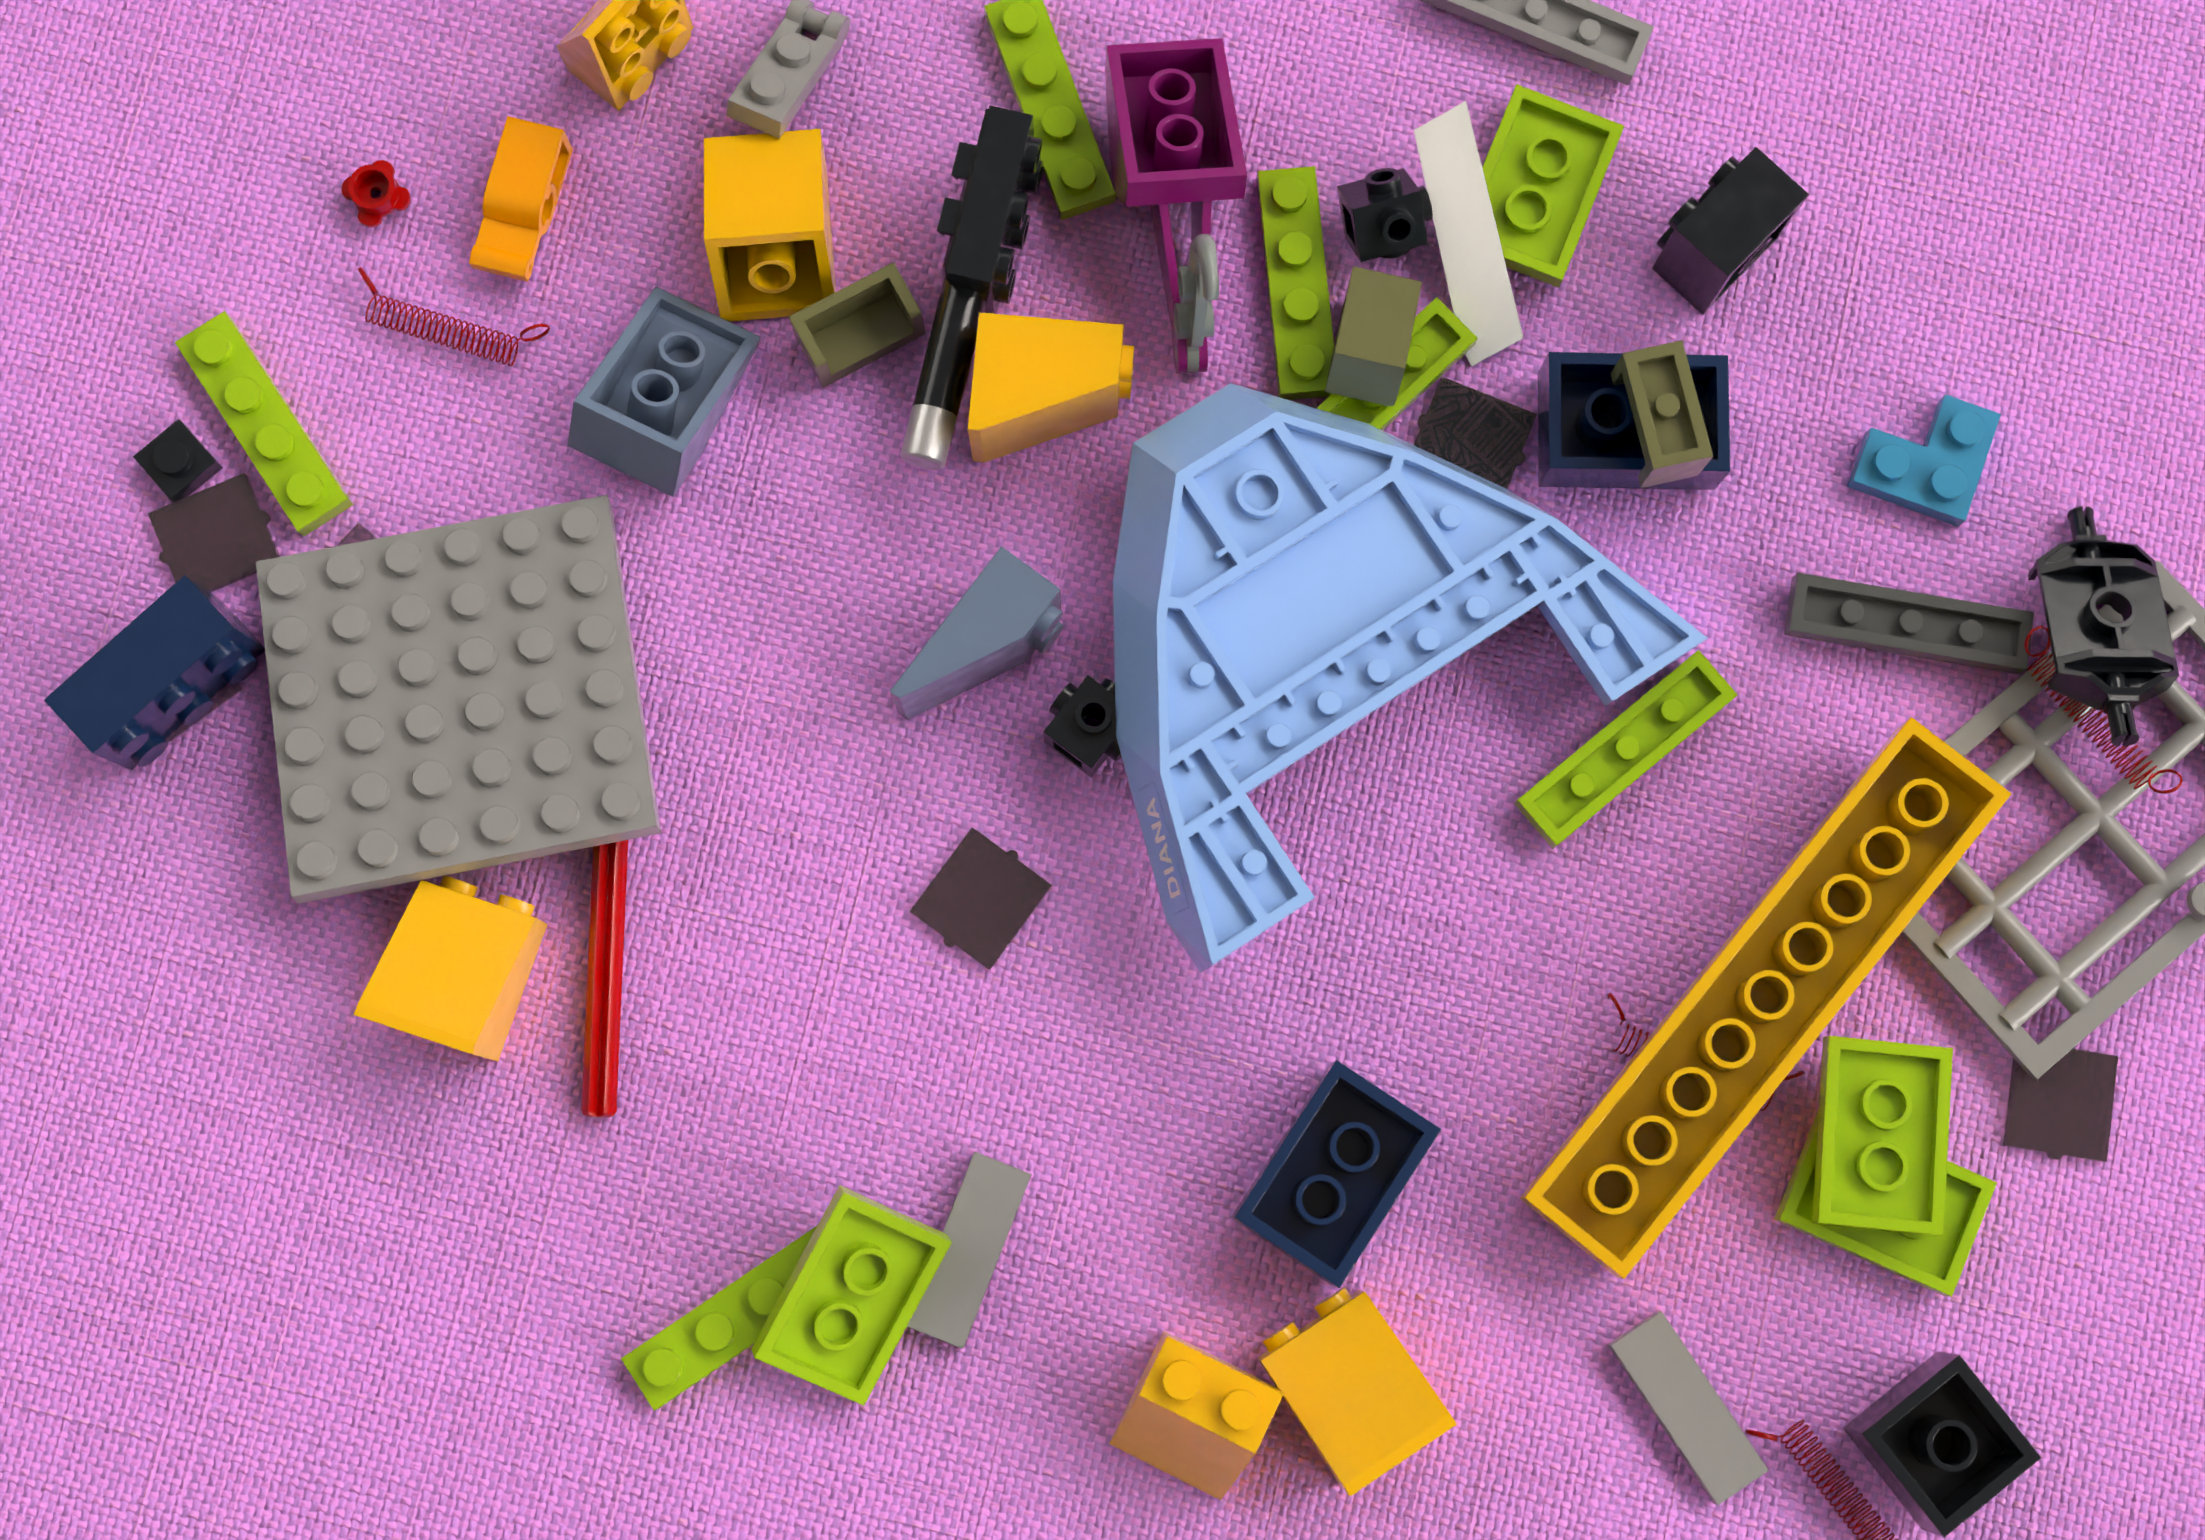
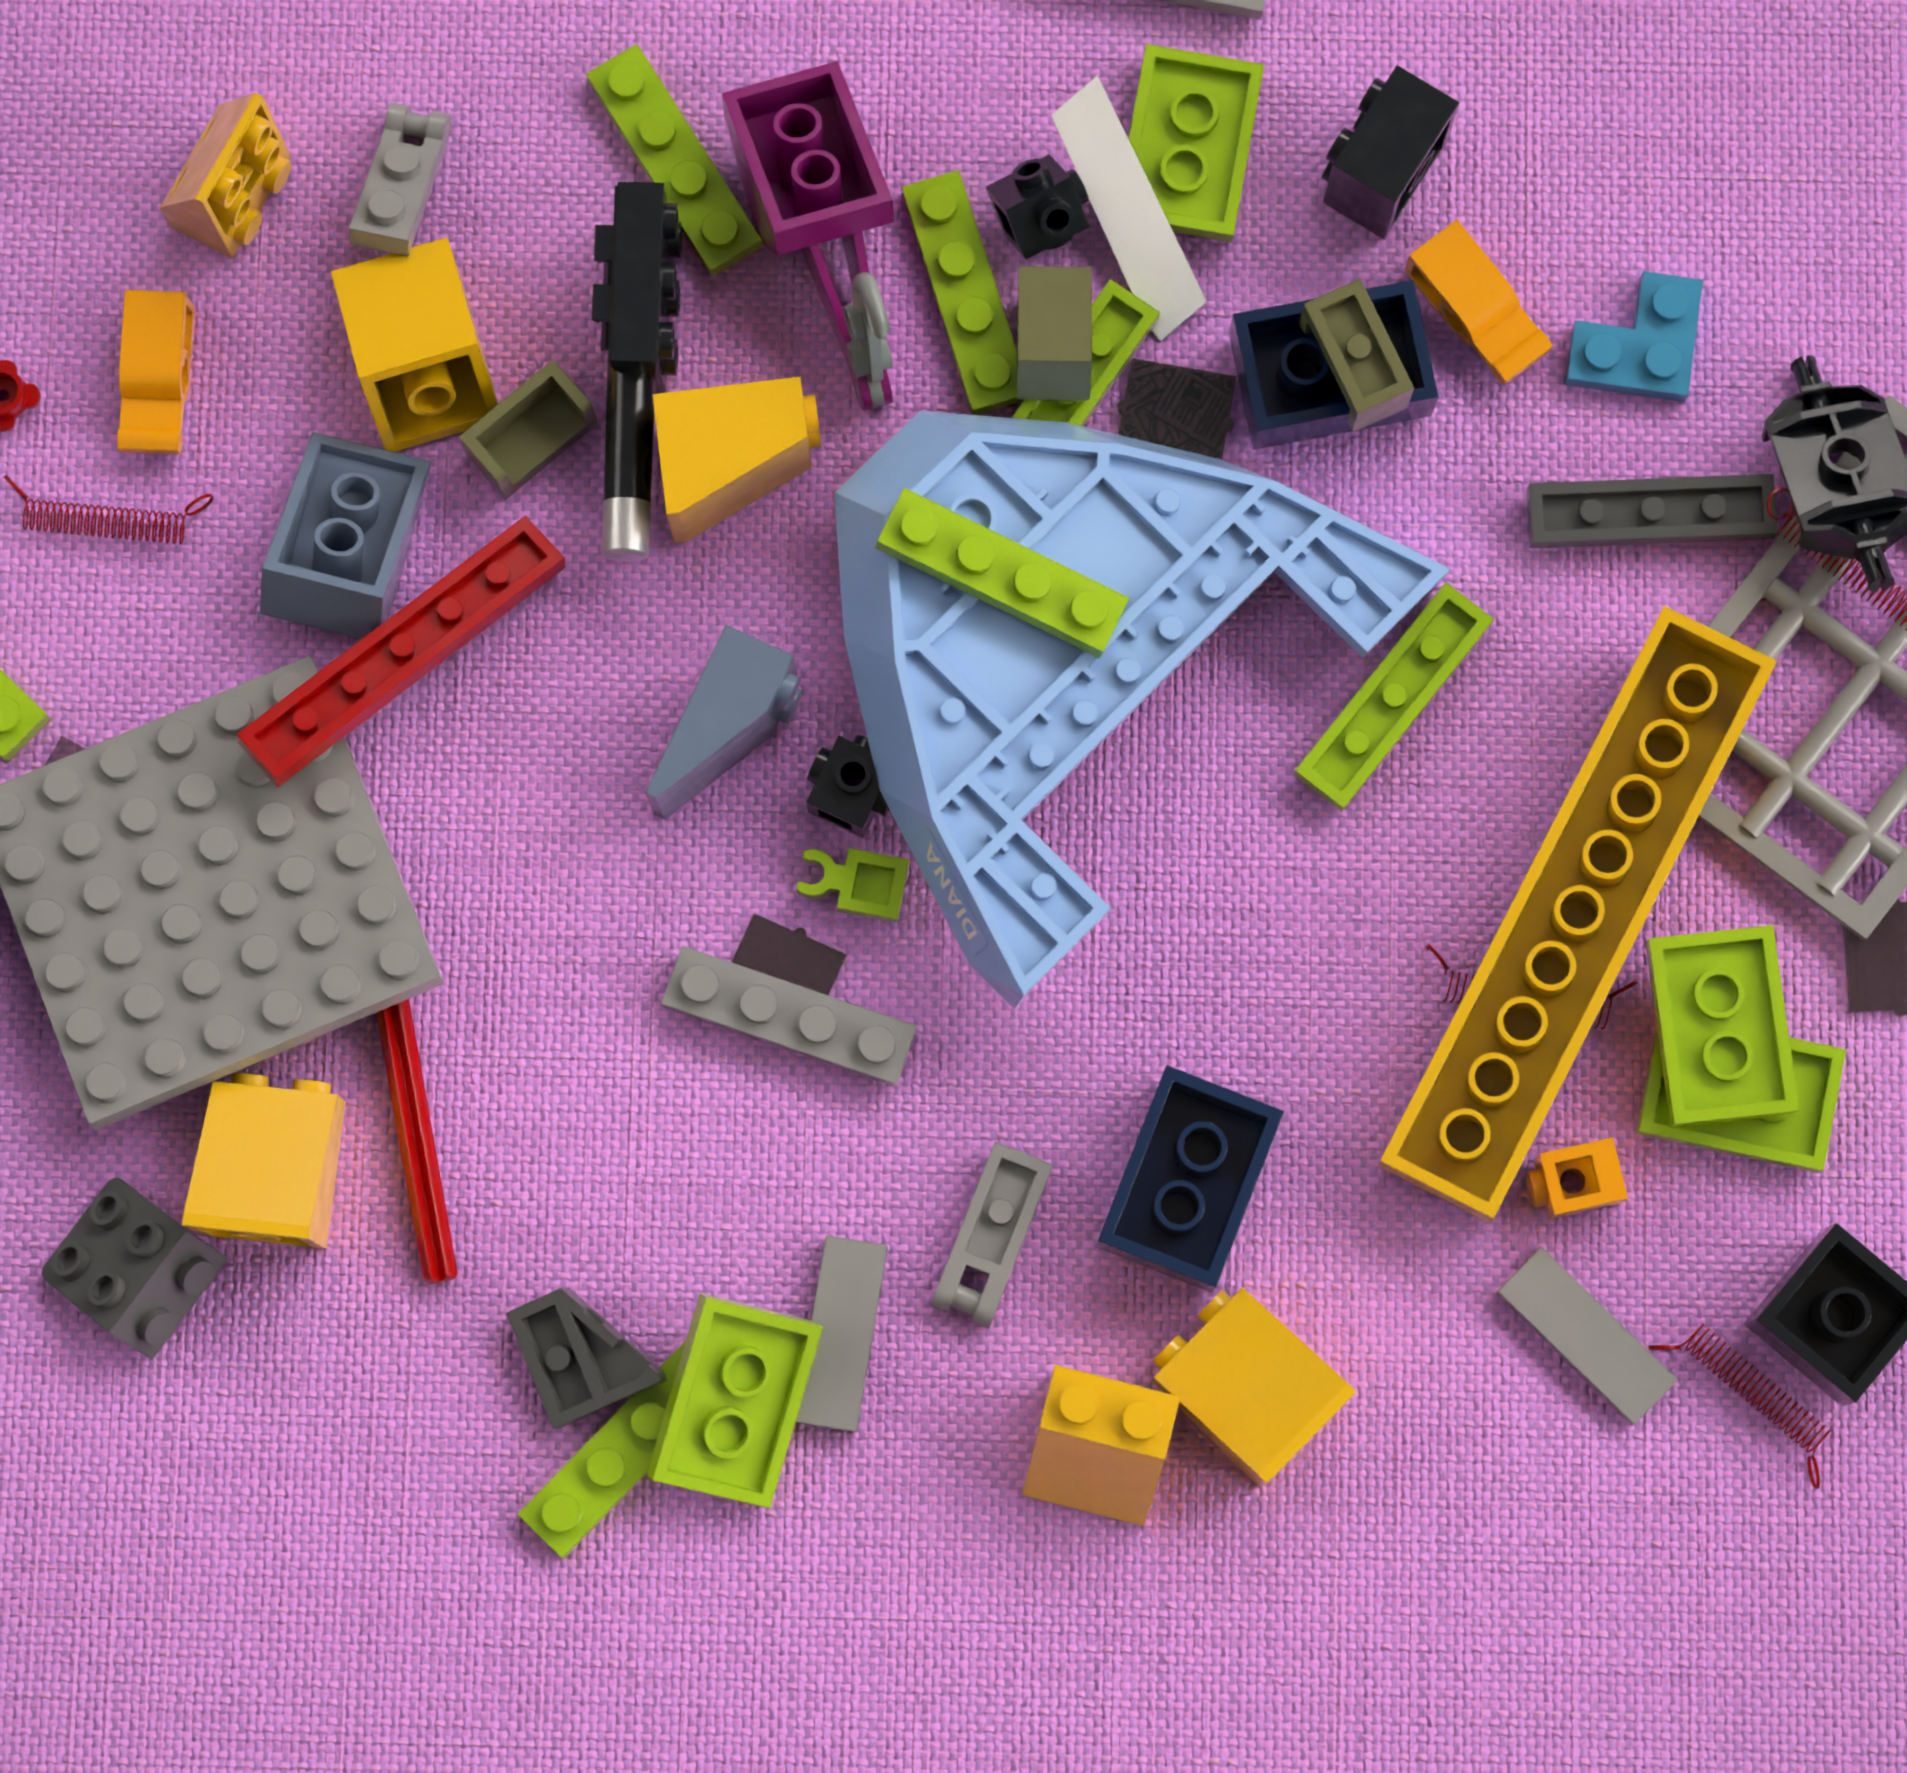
camera: 10 degrees left, 0 degrees up
(306, 1042) = (132, 1267): none -> dark grey bracket
(689, 508) = (400, 651): none -> red plate
(711, 1219) = (578, 1357): none -> dark grey wing
(984, 933) = (789, 1016): none -> light grey plate
(1083, 822) = (866, 884): none -> lime plate
(1135, 1183) = (992, 1232): none -> light grey plate
(1277, 551) = (1001, 572): none -> lime plate
(1732, 1253) = (1599, 1172): none -> light orange brick
(1781, 390) = (1477, 302): none -> light orange piece

